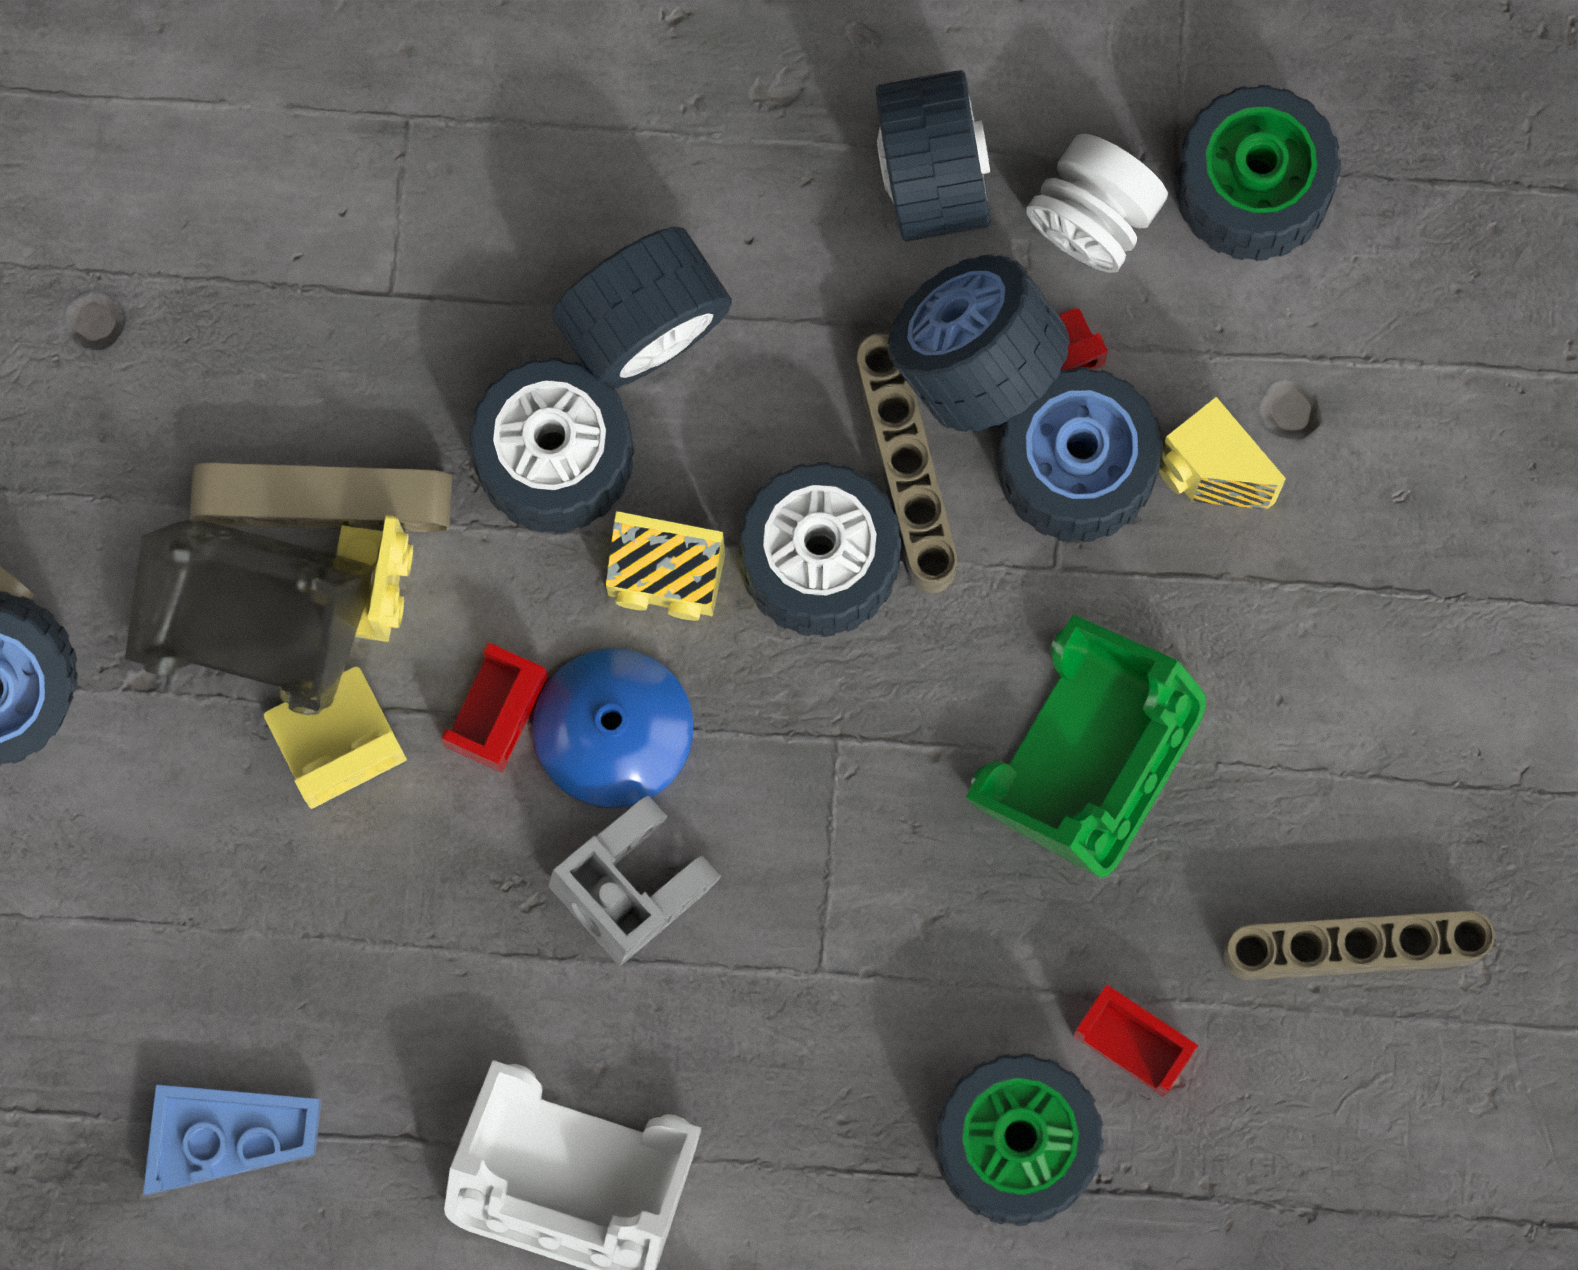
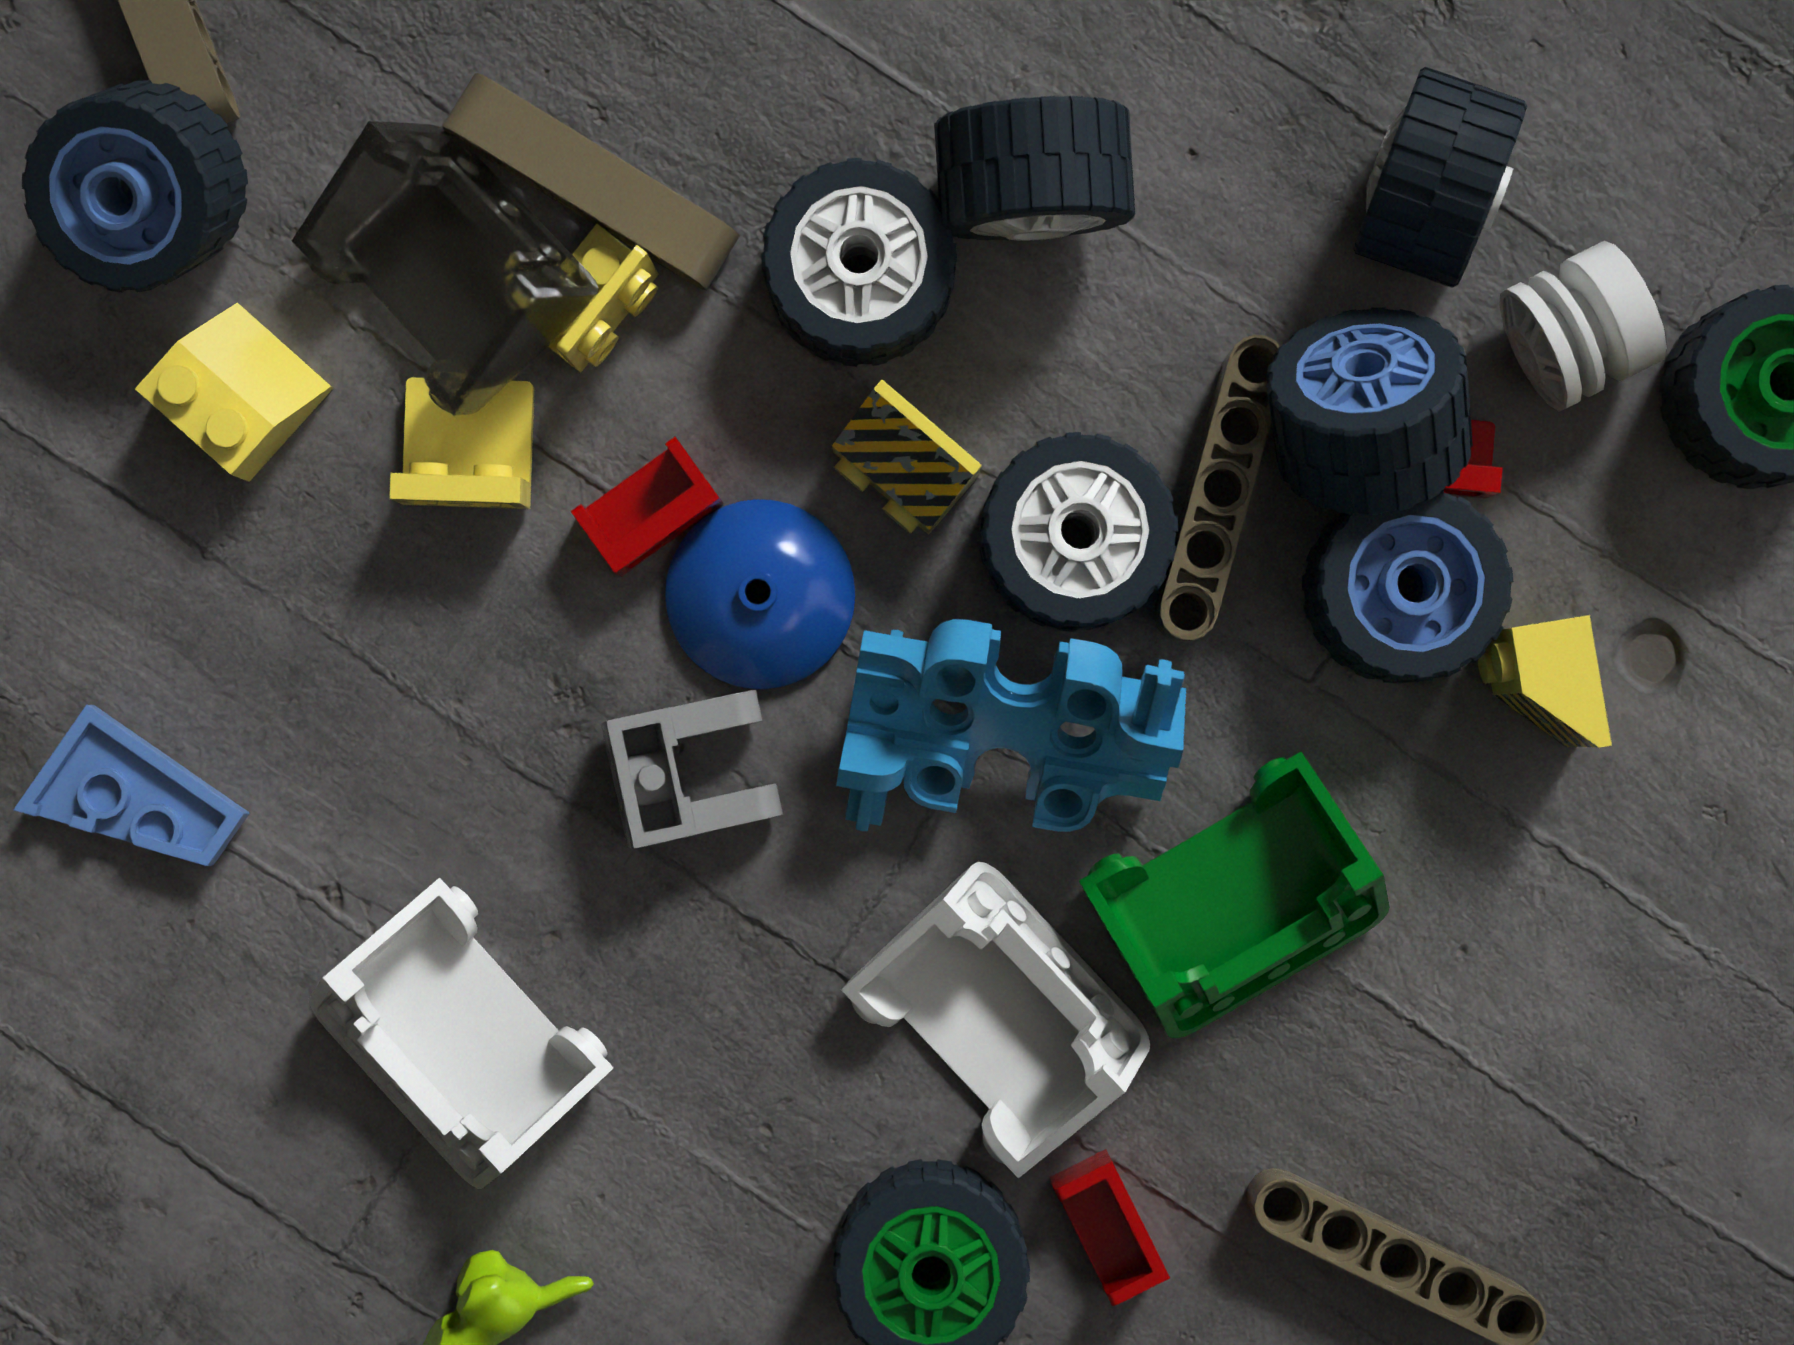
camera: 25 degrees right, 10 degrees up
(140, 794) = (234, 390): none -> light yellow slope
(773, 763) = (902, 735): none -> dark azure gear
(965, 928) = (1006, 1014): none -> white windscreen

